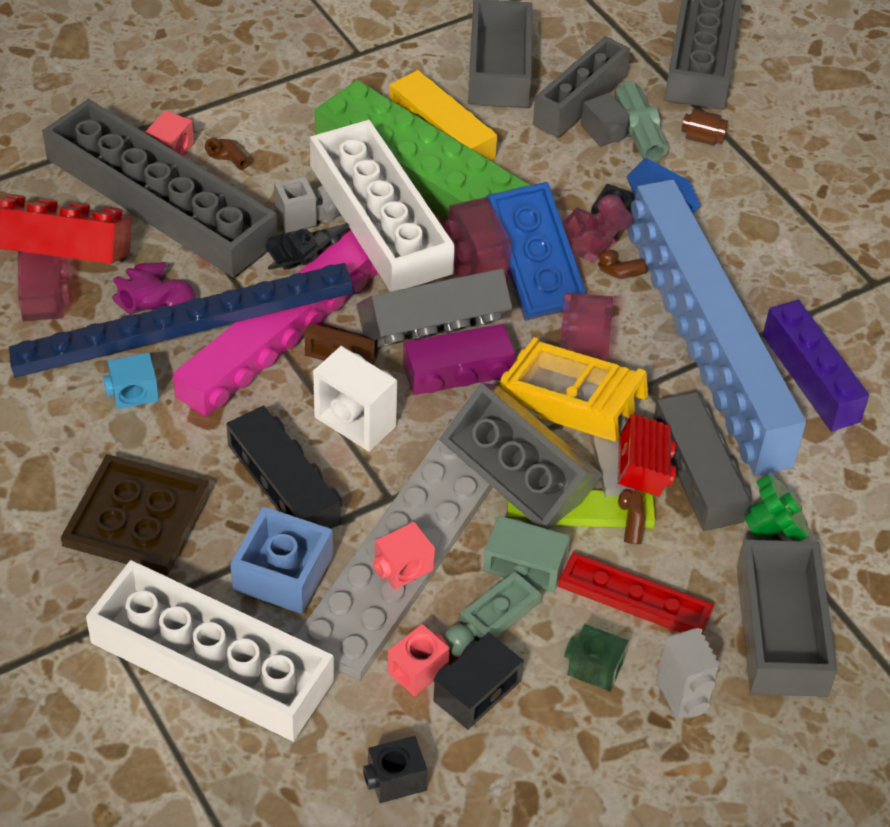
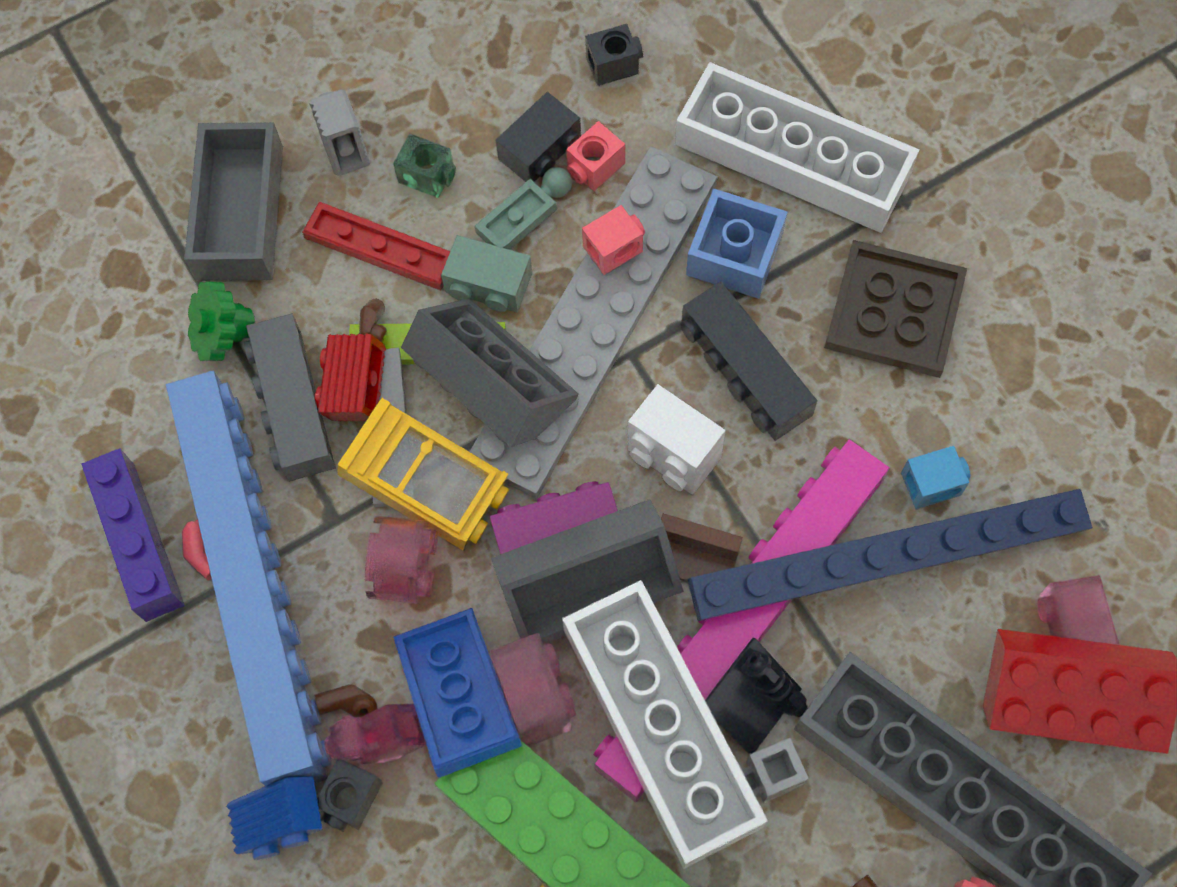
camera: 175 degrees left, 20 degrees up
(148, 291) = (944, 618): magenta animal -> none

